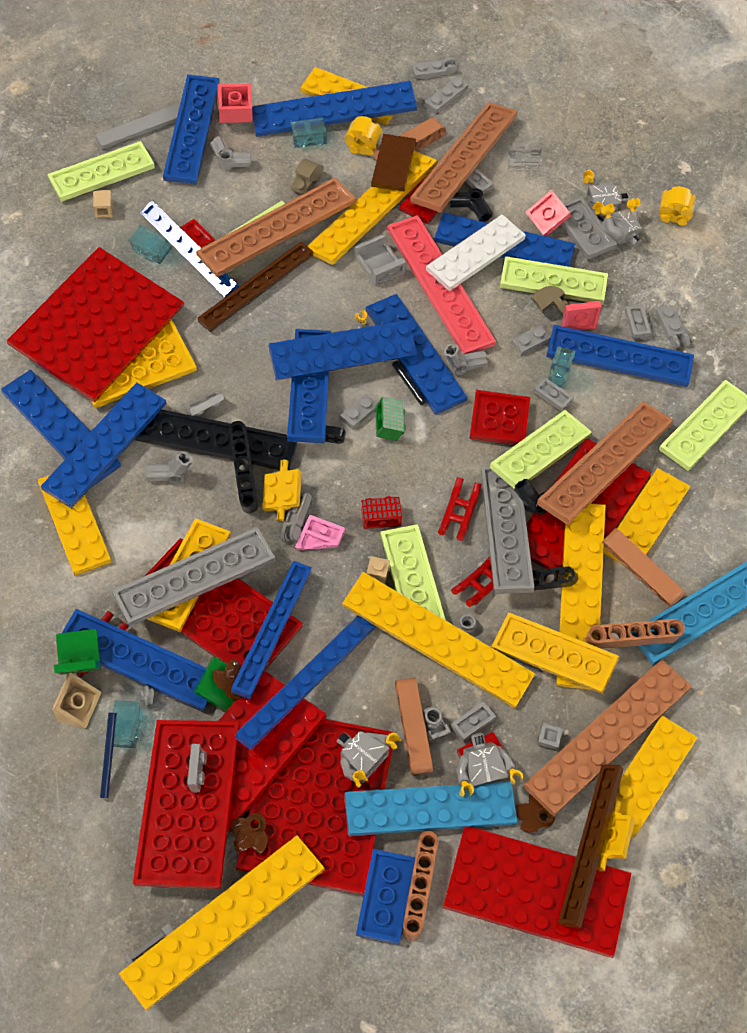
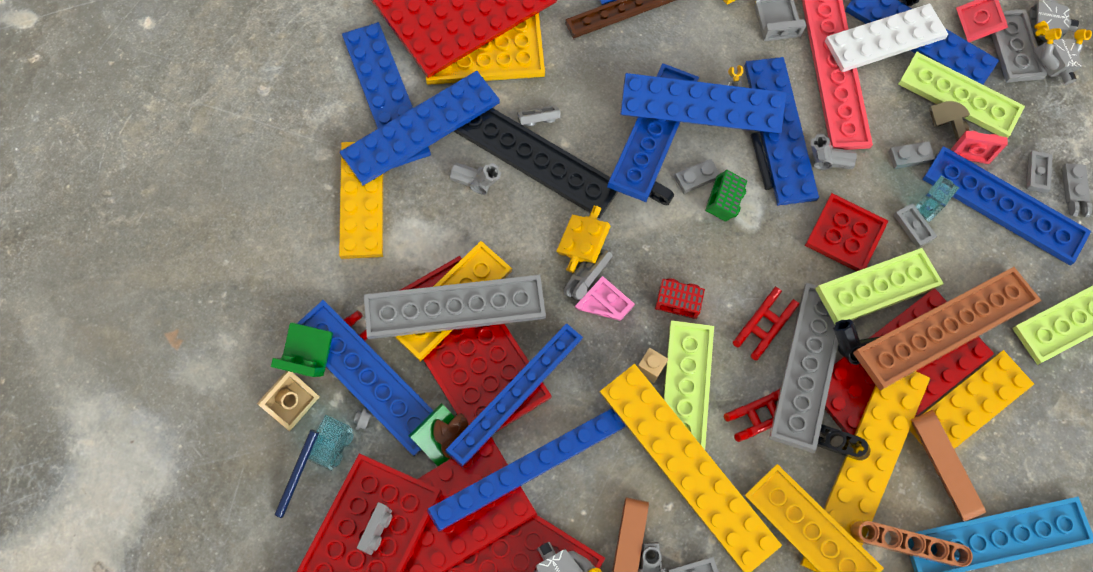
camera: 20 degrees right, 10 degrees up
(239, 459) = (551, 189): black beam -> none
(467, 619) = (733, 456): light grey plate -> none

